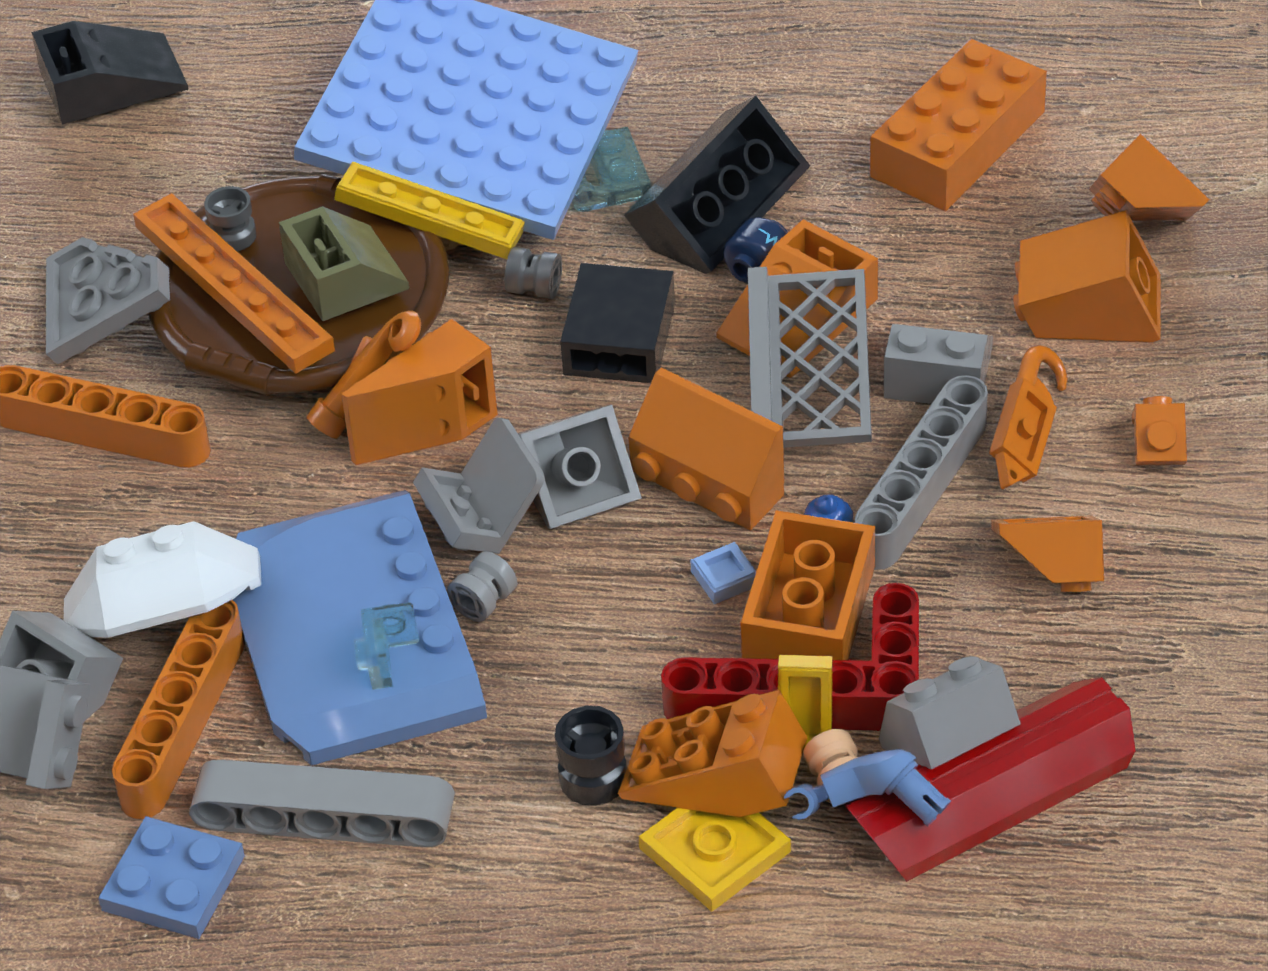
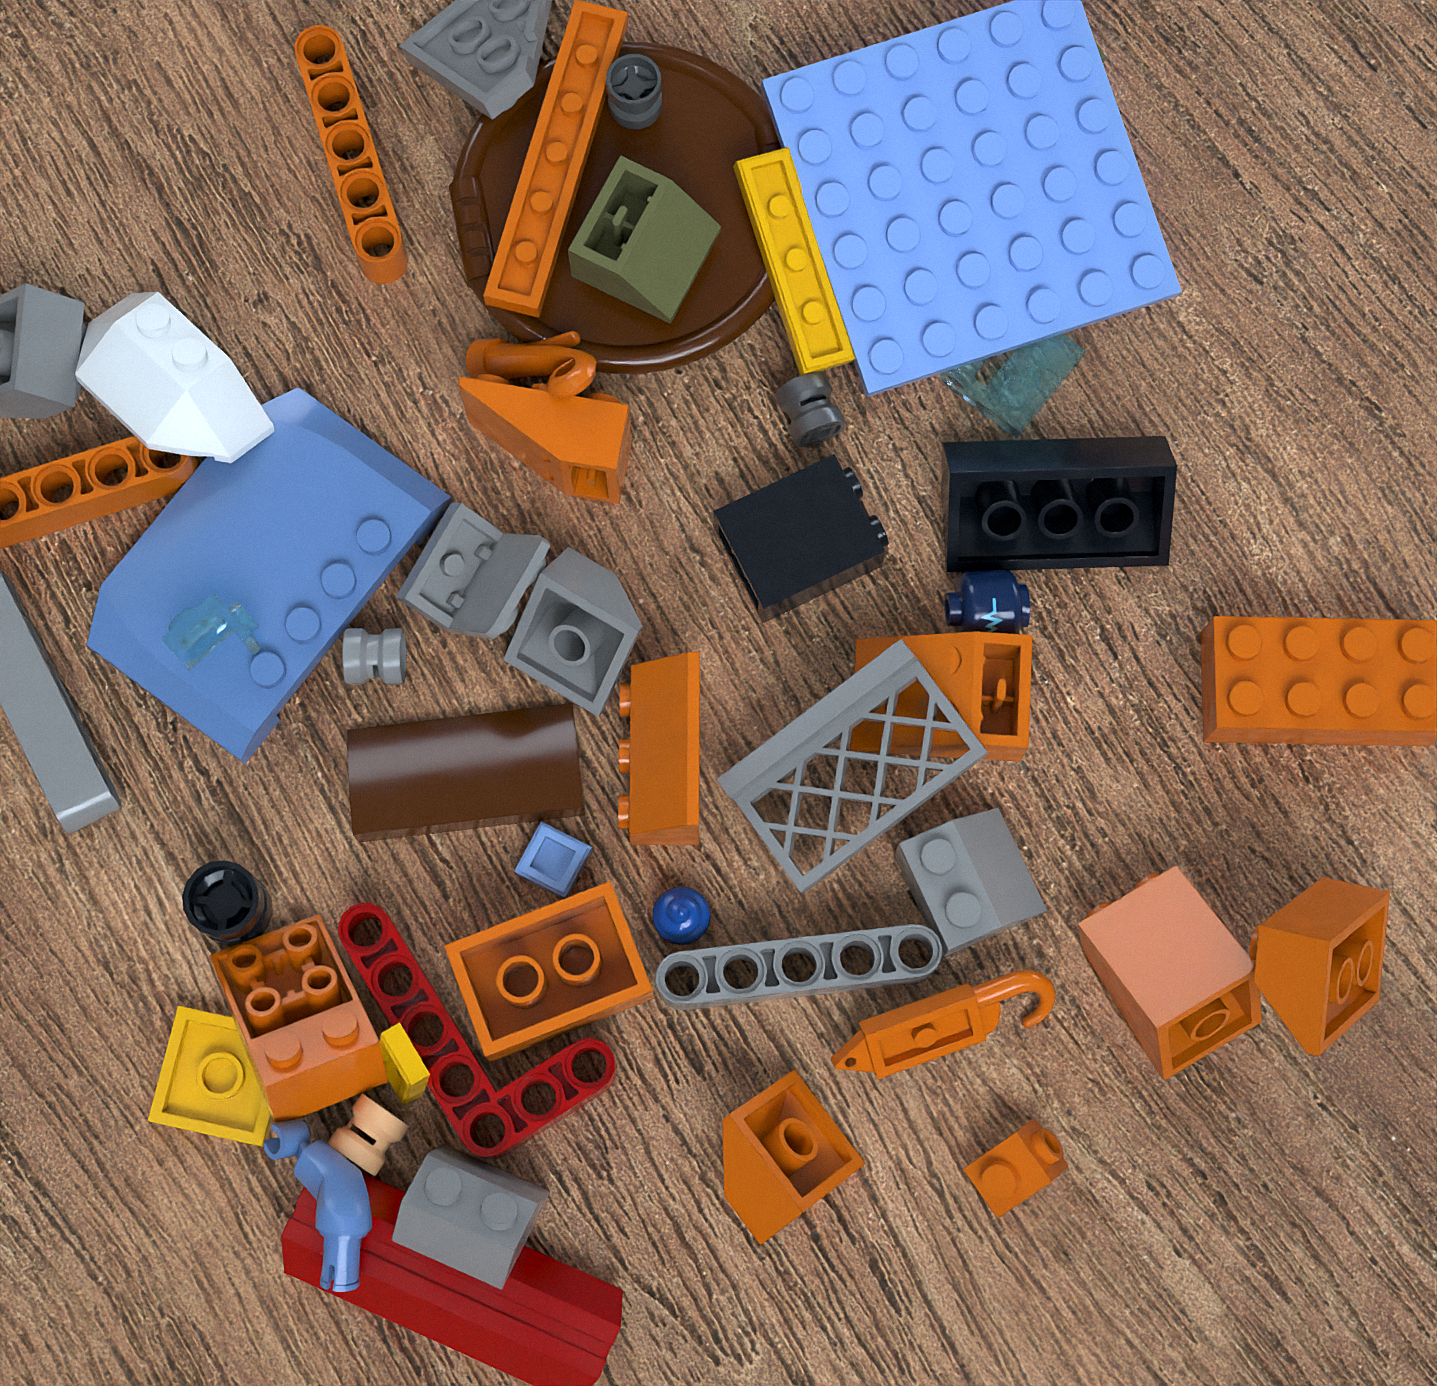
camera: 50 degrees right, 30 degrees up
(616, 587) = (464, 773): none -> reddish brown slope

